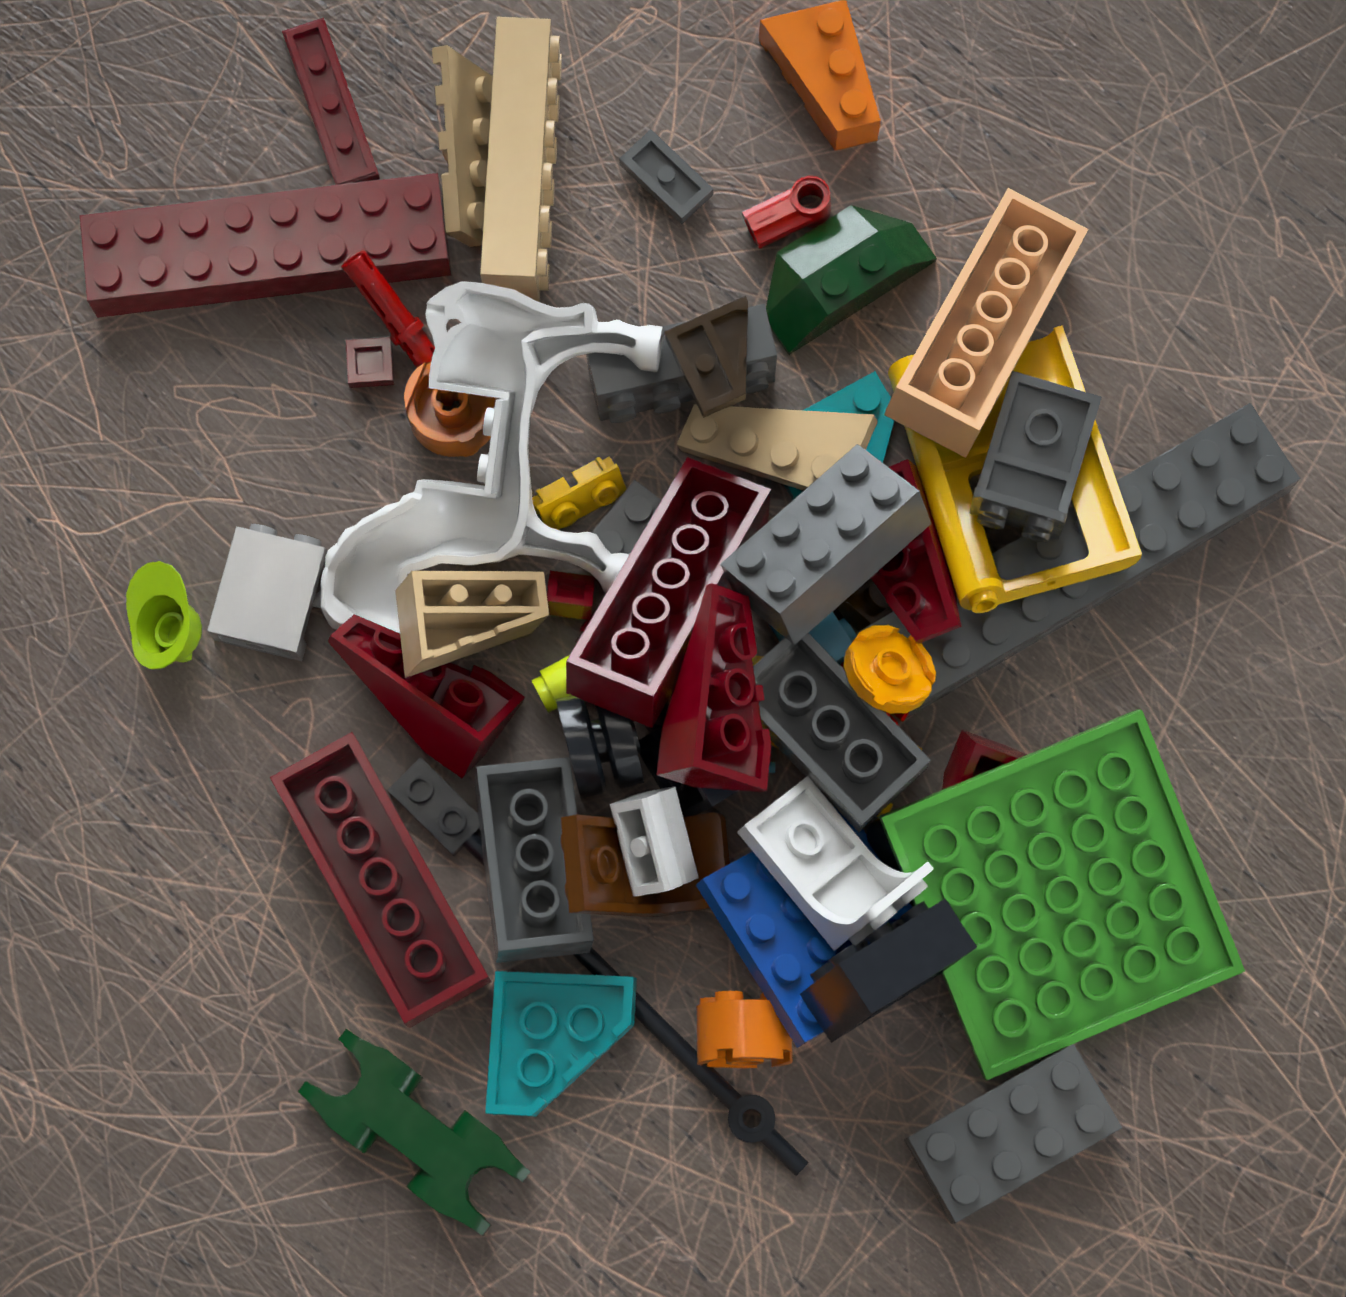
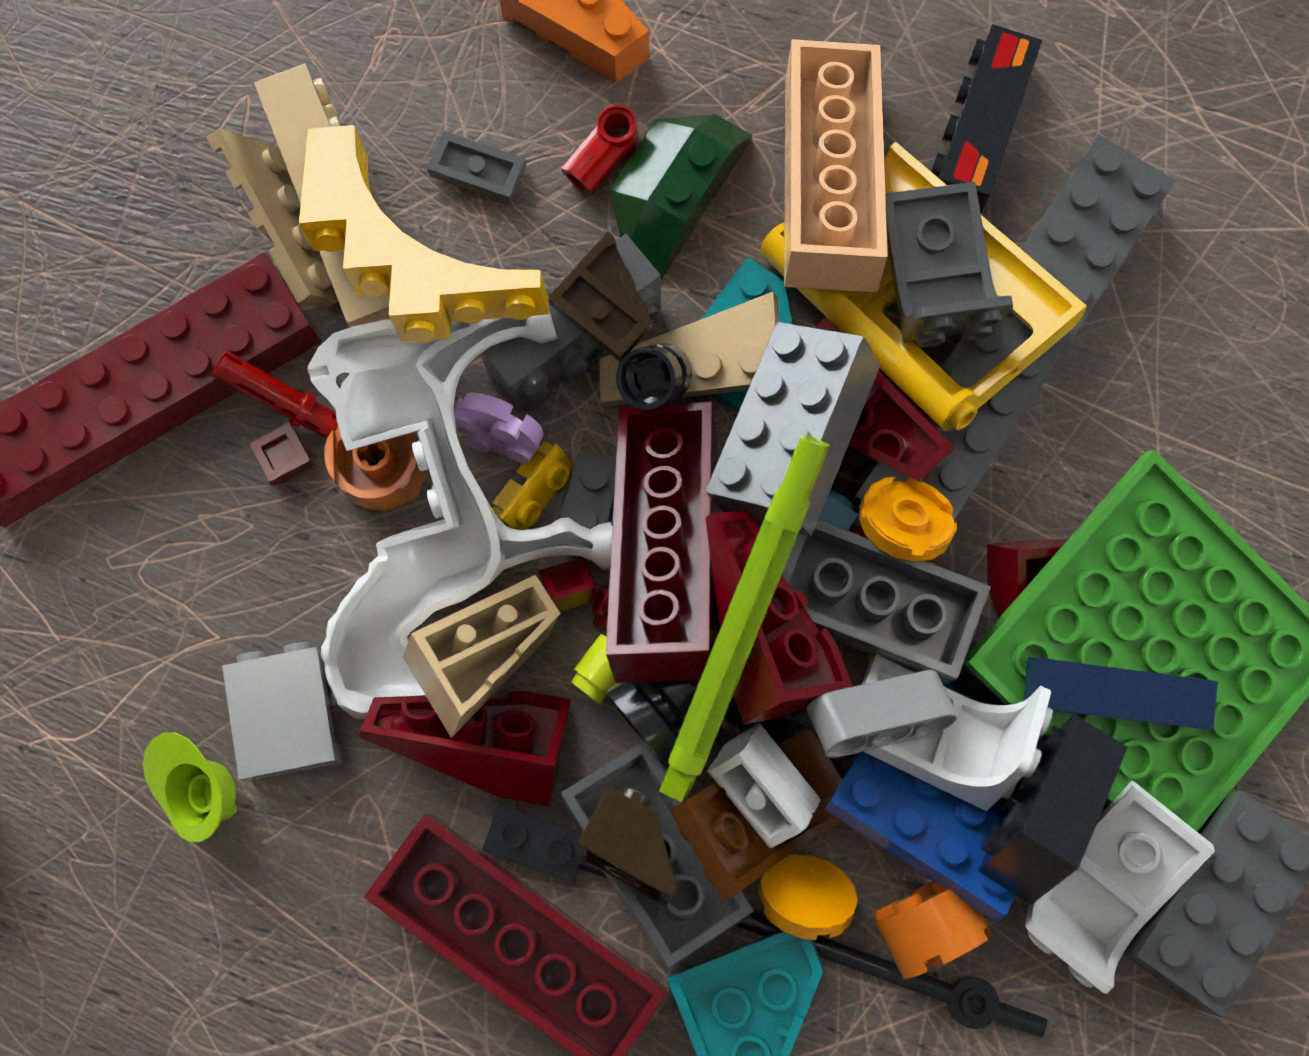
camera: 25 degrees left, 0 degrees up
(330, 103) = (136, 234): dark red tile -> none
(508, 828) = (628, 845): none -> dark brown slope
(531, 234) = (381, 260): none -> arch
(566, 421) = (491, 425): none -> lavender plate
(649, 957) = (808, 897): none -> light orange tile
(694, 682) = (744, 618): none -> lime piece
(729, 442) = (653, 376): none -> black wheel
(780, 822) = (881, 713): none -> light grey beam
(918, 1070) = (1126, 876): none -> white bracket
(1008, 909) = (1123, 693): none -> dark blue tile
(1162, 338) = (988, 110): none -> black brick

